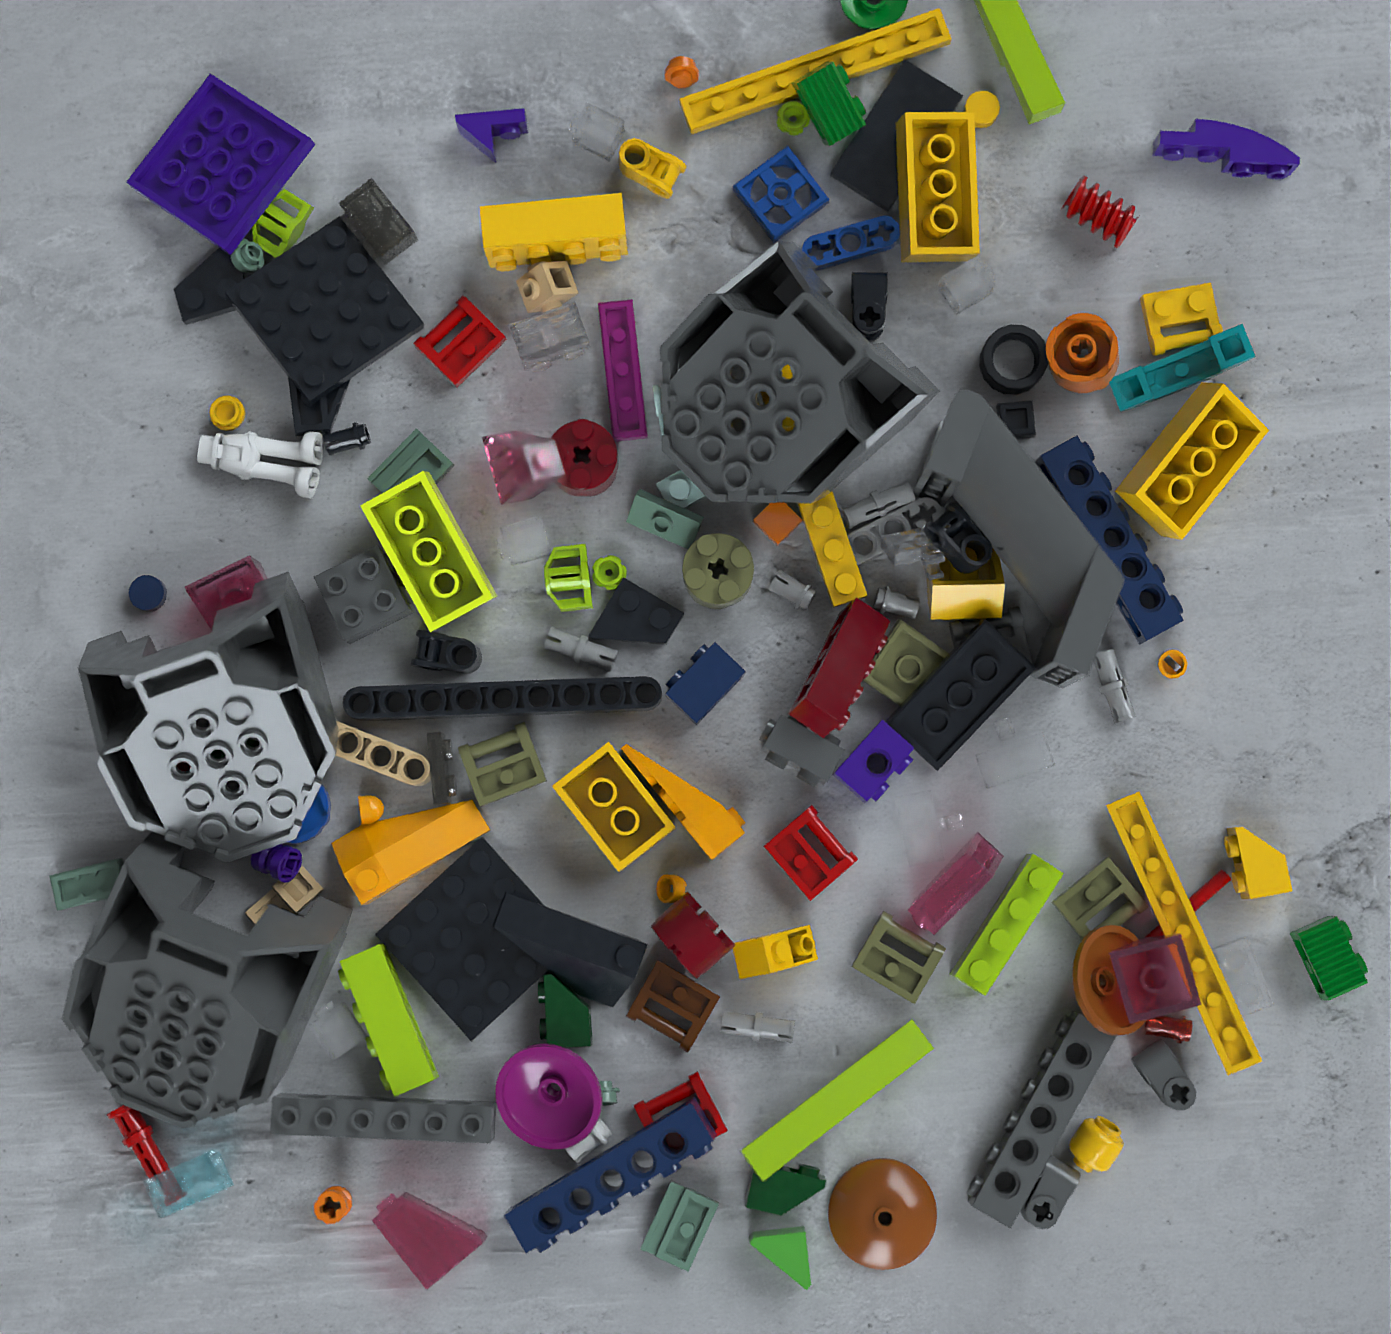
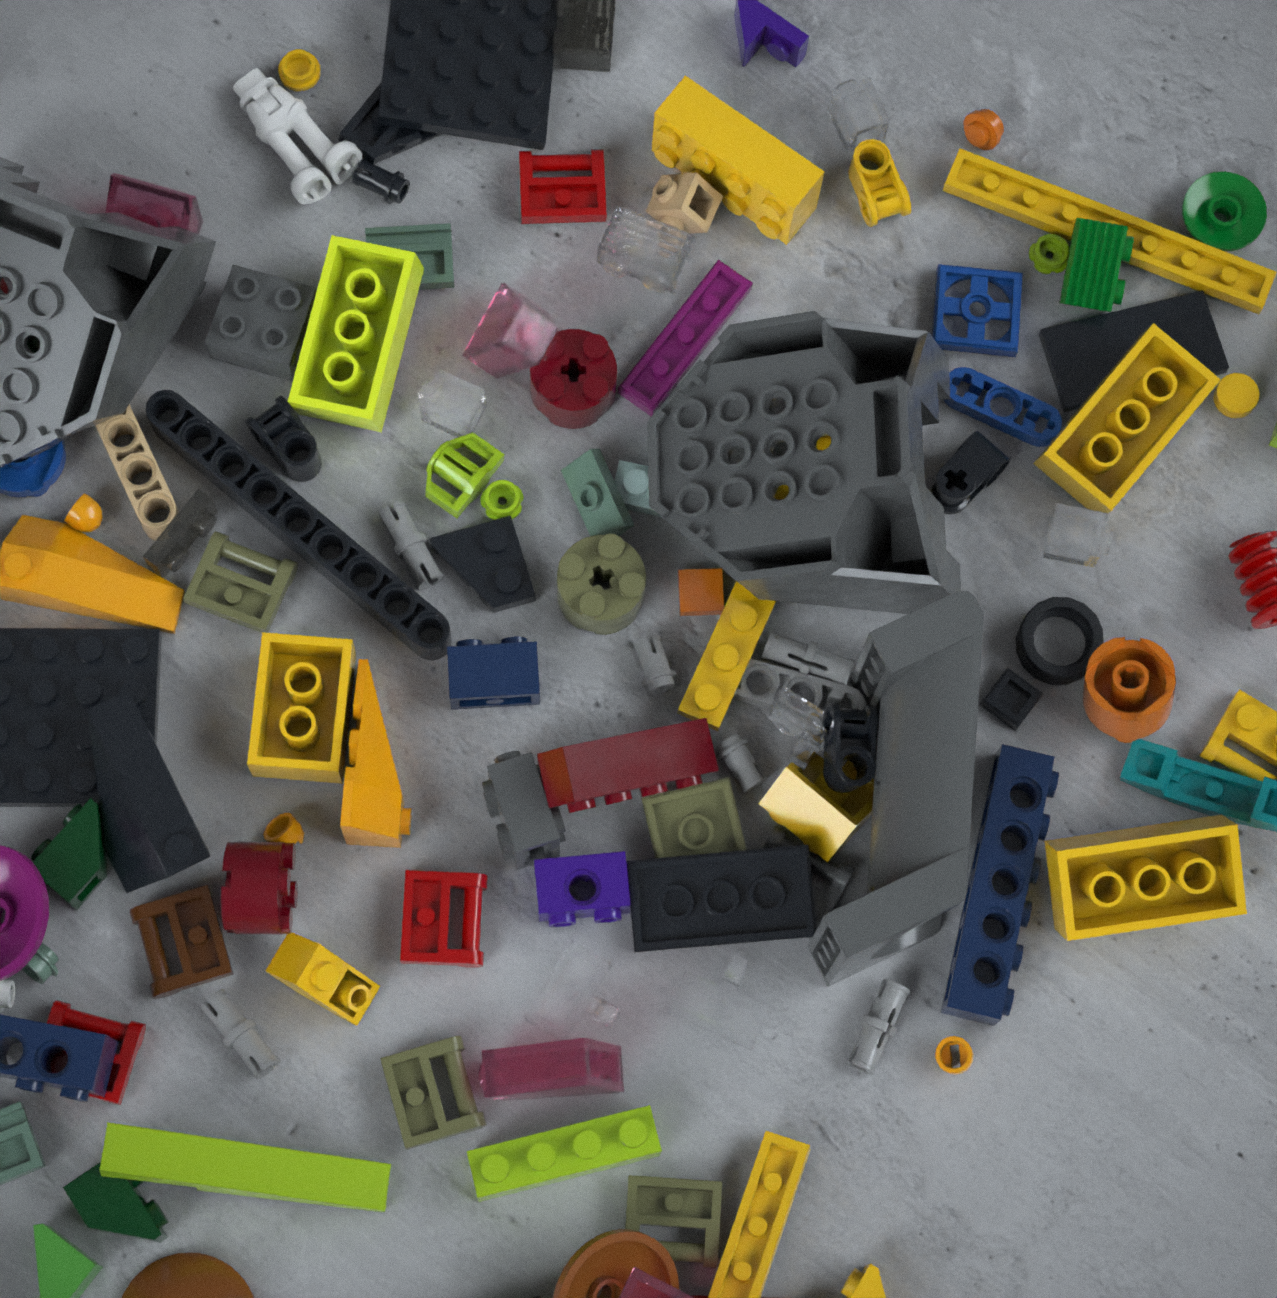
camera: 35 degrees right, 10 degrees down
(147, 593) = (79, 160): dark blue tile -> none

